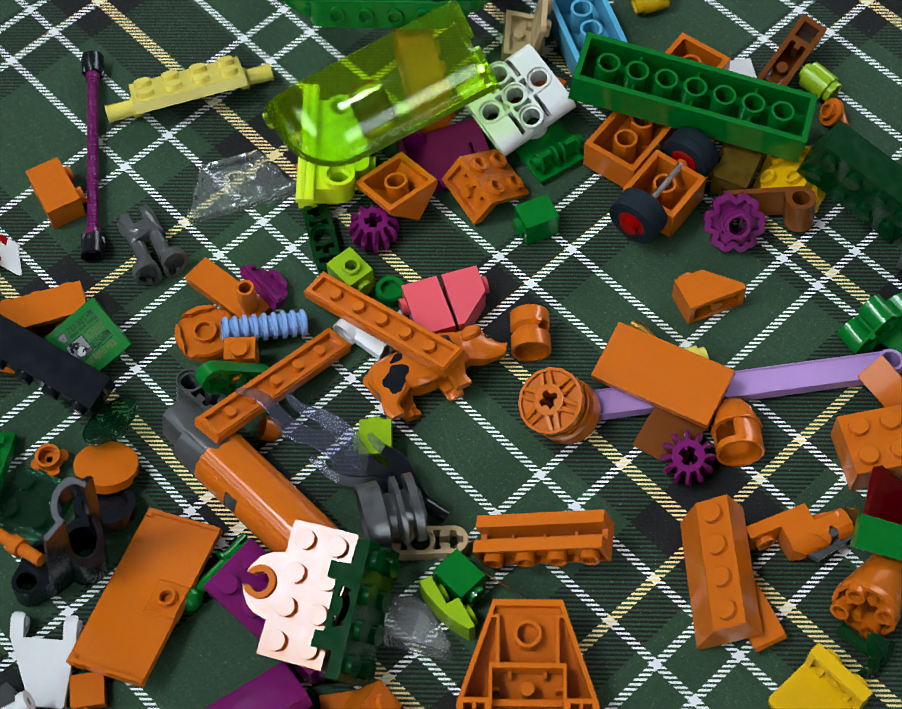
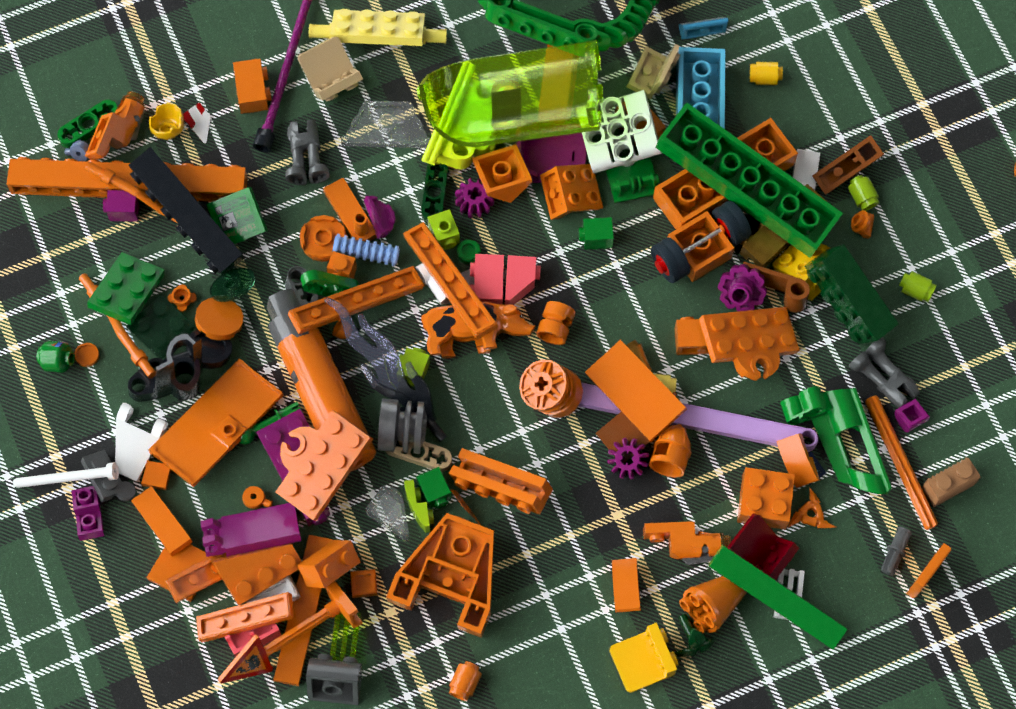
camera: 15 degrees right, 10 degrees up
(144, 144) = (329, 69): none -> tan bracket
(237, 676) = (258, 501): none -> orange piece
(357, 641) = (366, 475): dark green piece -> none
(720, 573) = (614, 549): orange slope -> none
(770, 273) = (750, 339): none -> orange plate

